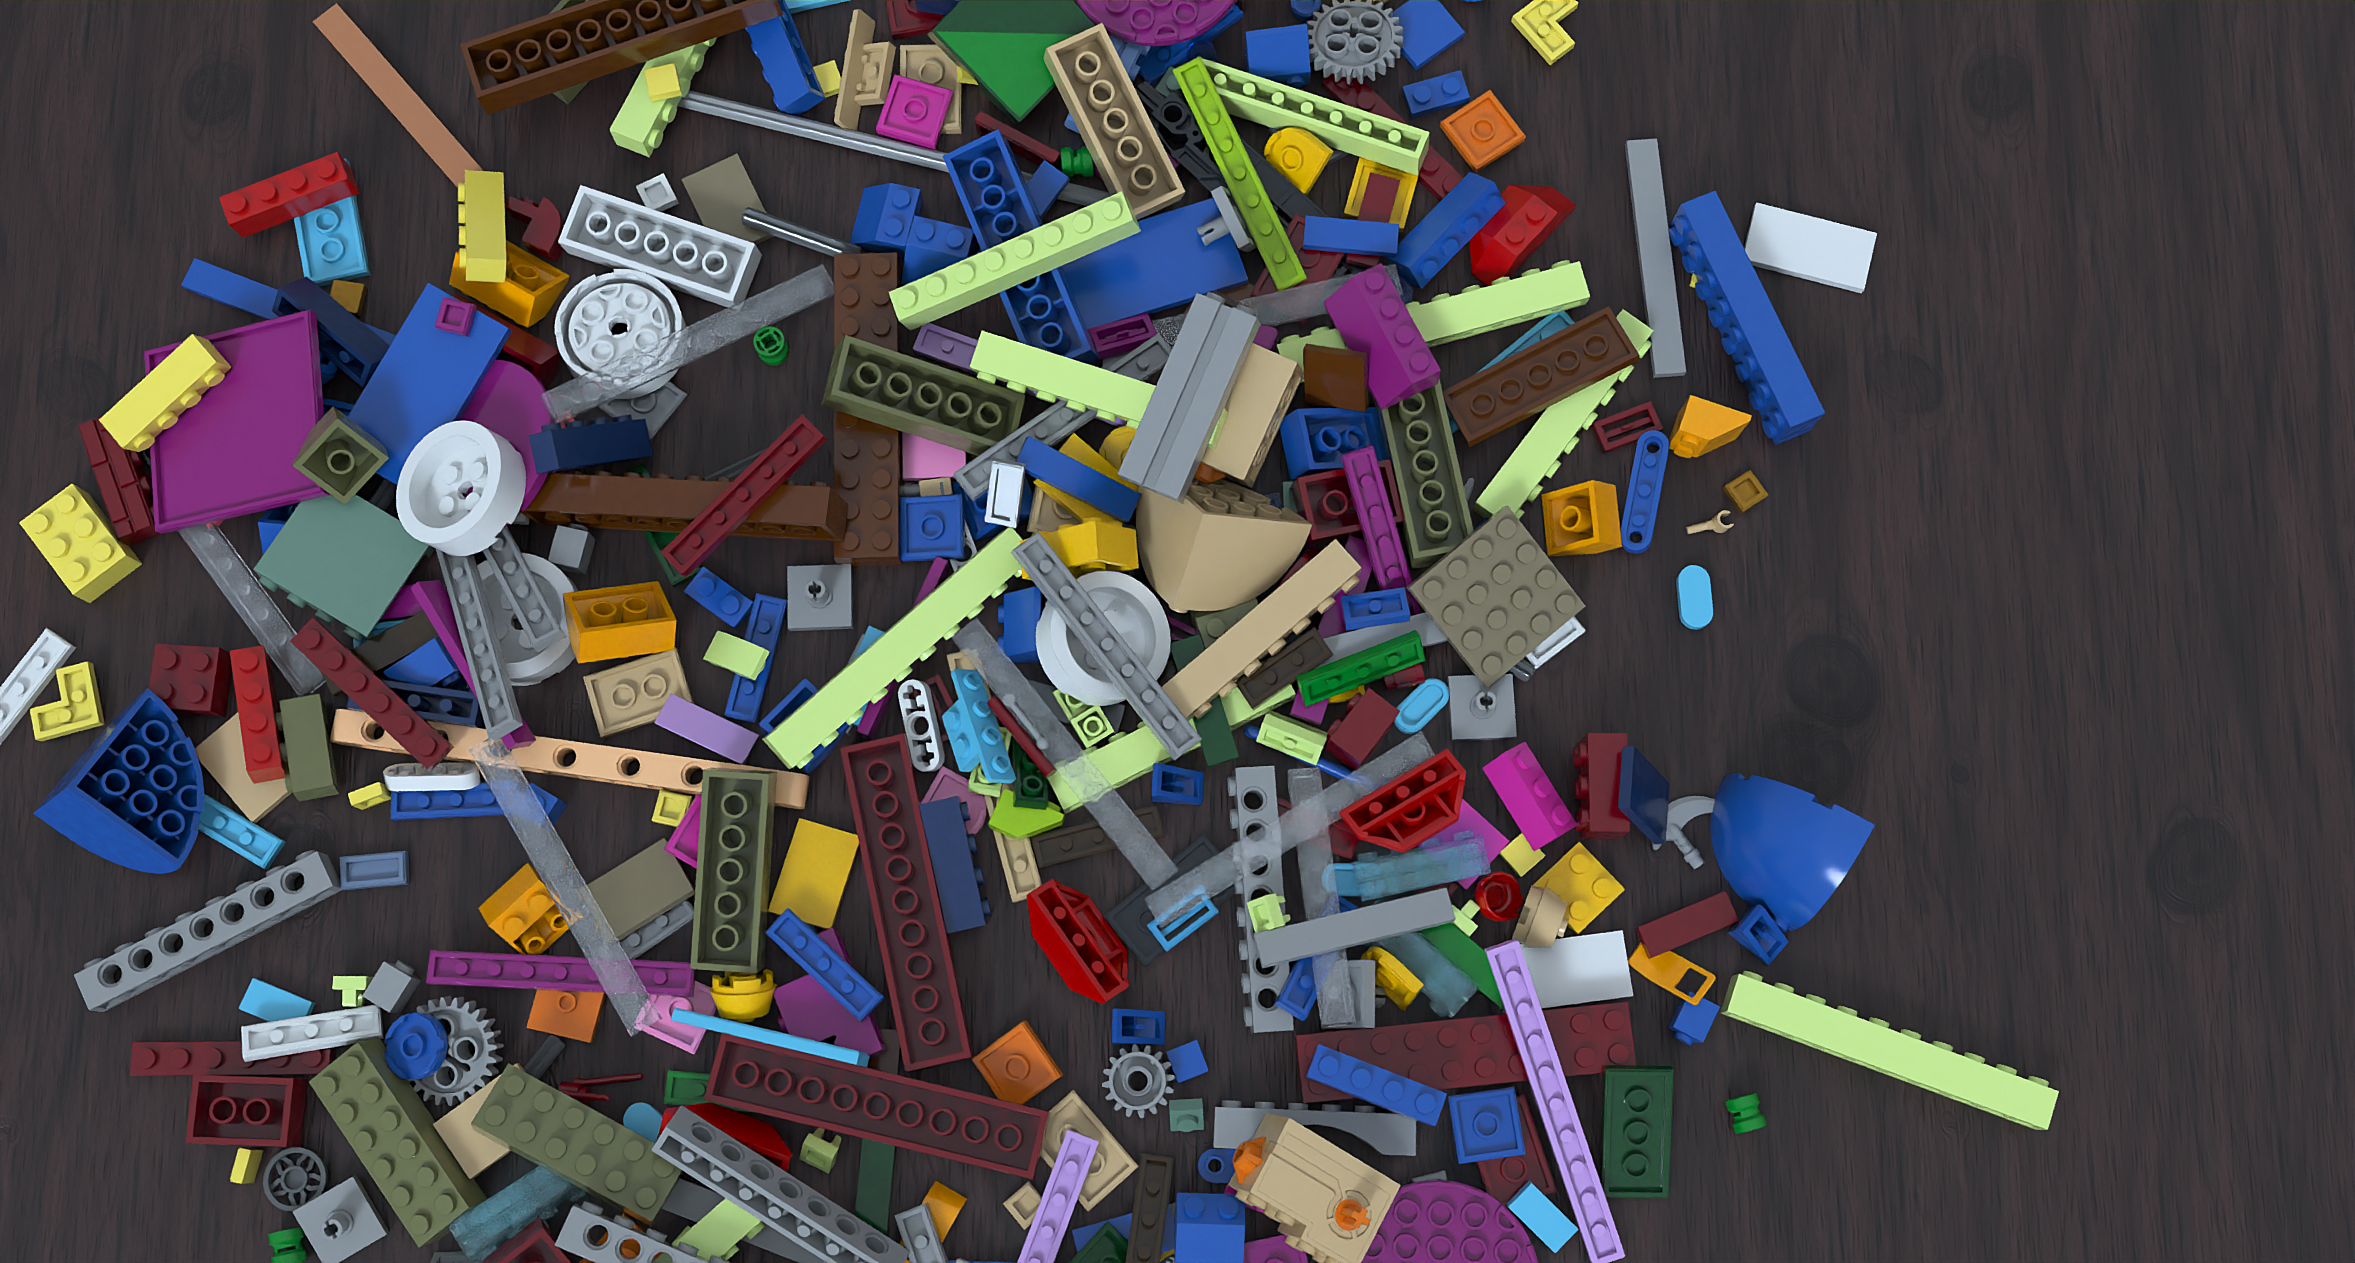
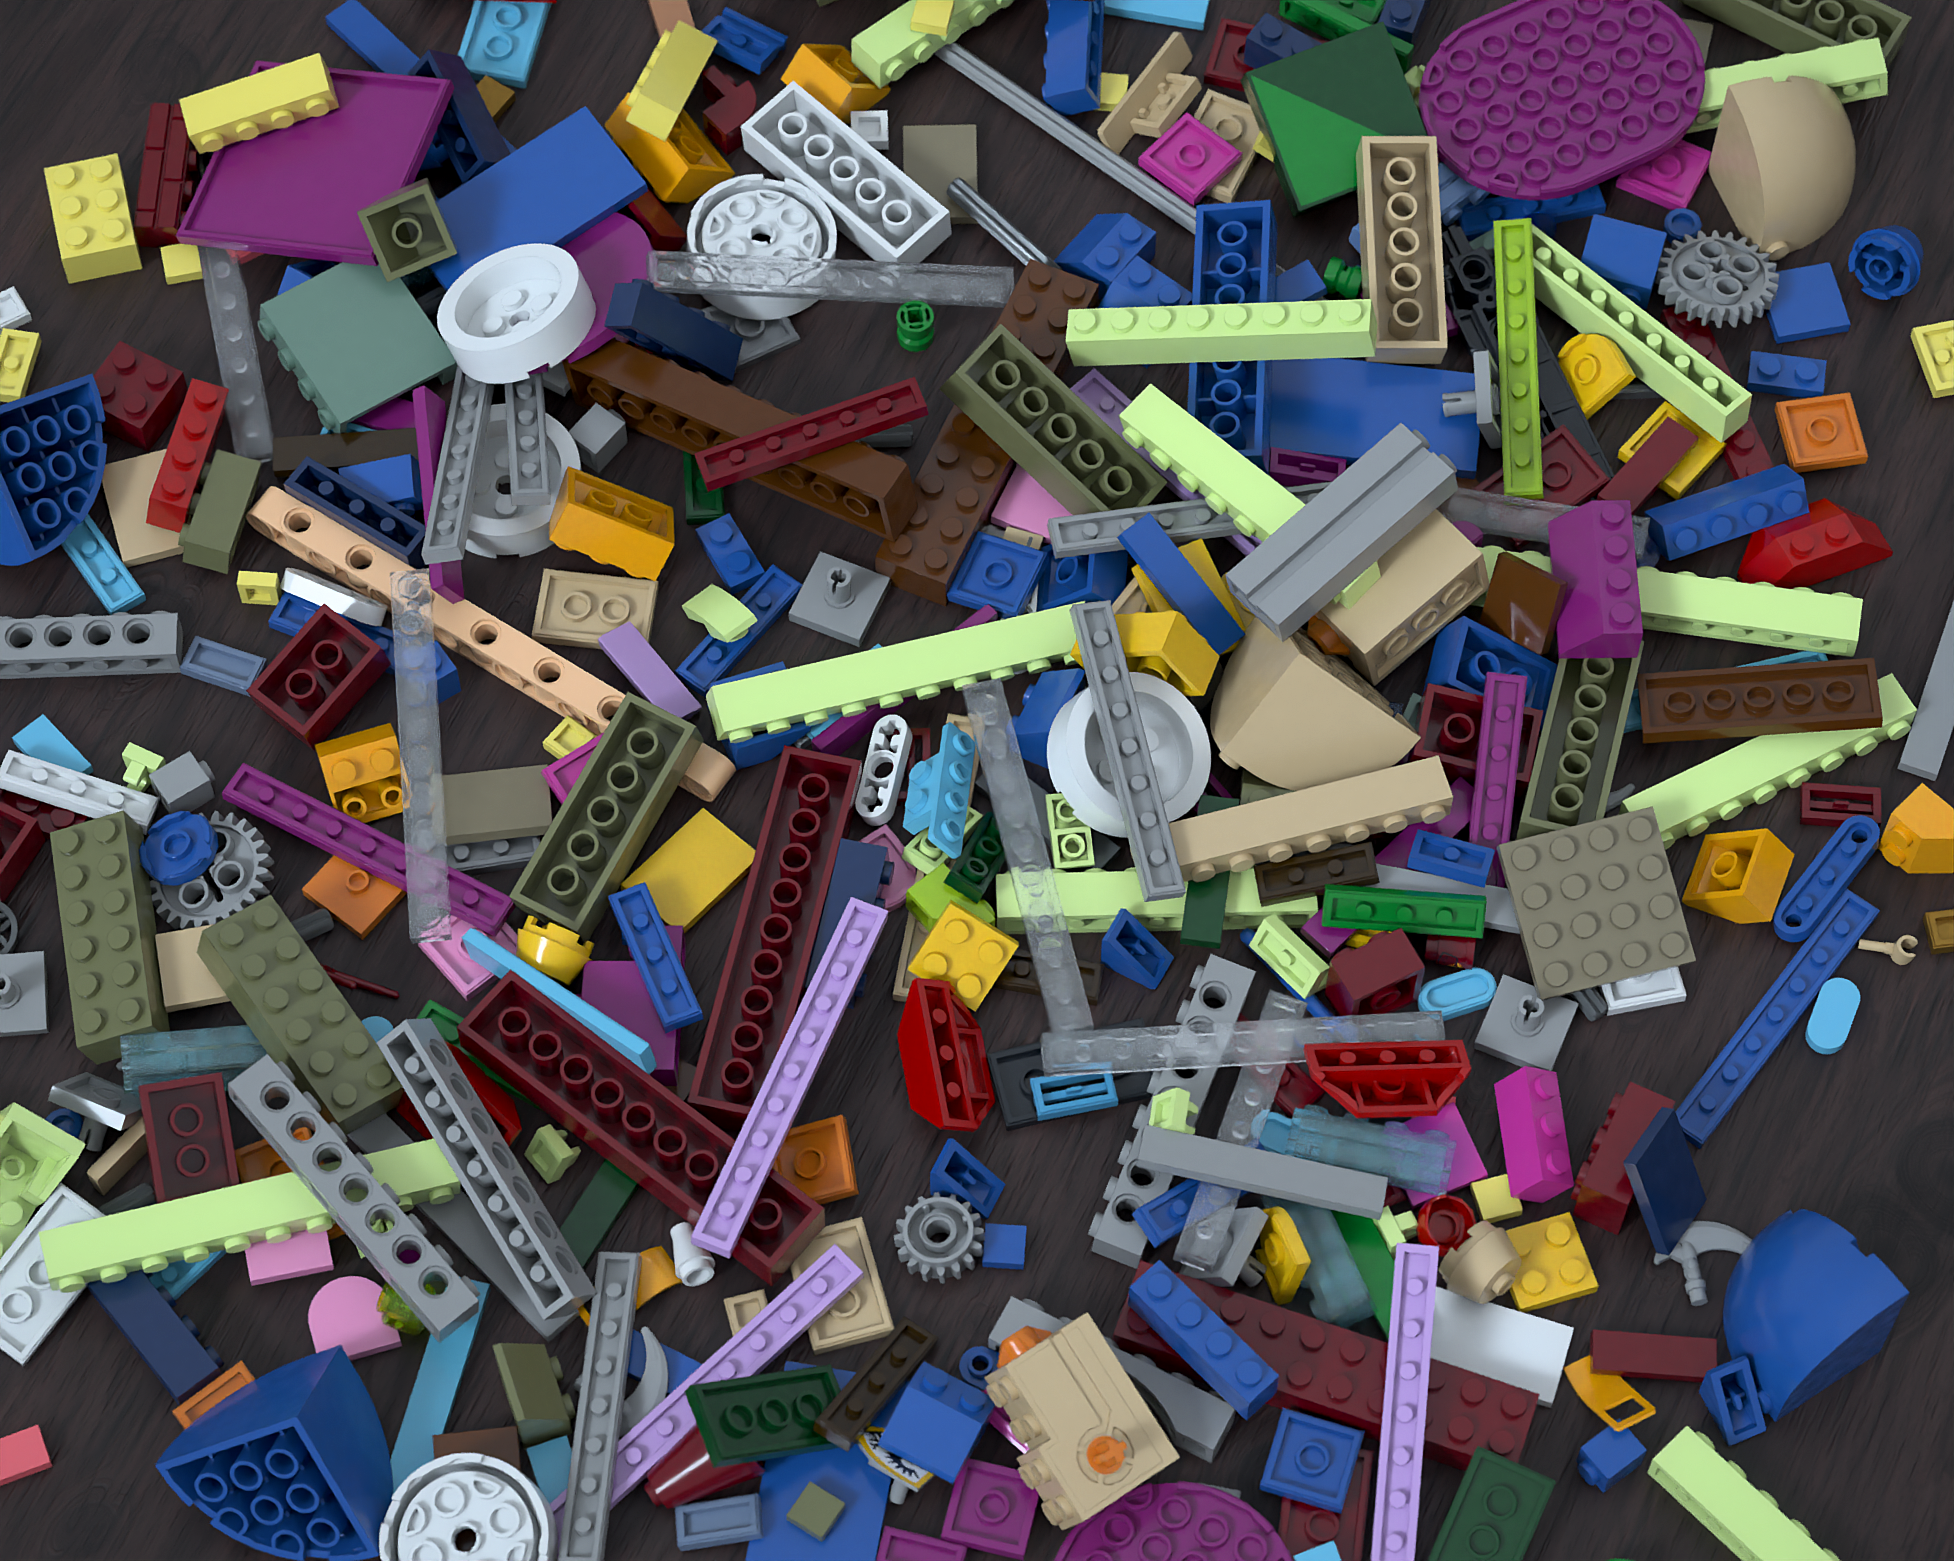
camera: 25 degrees right, 15 degrees down
(170, 548) = (181, 263): none -> light yellow tile
(372, 694) = (317, 480): dark red plate -> none
(454, 853) = (319, 676): none -> dark red brick
(455, 316) = (597, 149): magenta tile -> none
(523, 160) = (745, 40): none -> blue plate
(608, 167) = (833, 80): none -> light orange slope
(962, 1181) = (692, 1262): none -> white cone
(975, 1022) = (789, 1078): none -> lavender plate
(1005, 492) = (1094, 560): tile -> none
(1010, 701) = (993, 775): light grey hinge -> none
(1019, 142) = (1291, 235): dark red tile -> none
(1021, 736) = (988, 818): dark red bar -> none
(1052, 852) = (965, 953): none -> yellow plate
(1186, 1115) = (975, 1297): sand green plate -> none
(1350, 236) = (1612, 470): blue tile -> none
(1653, 618) = (1774, 1017): none -> blue tile

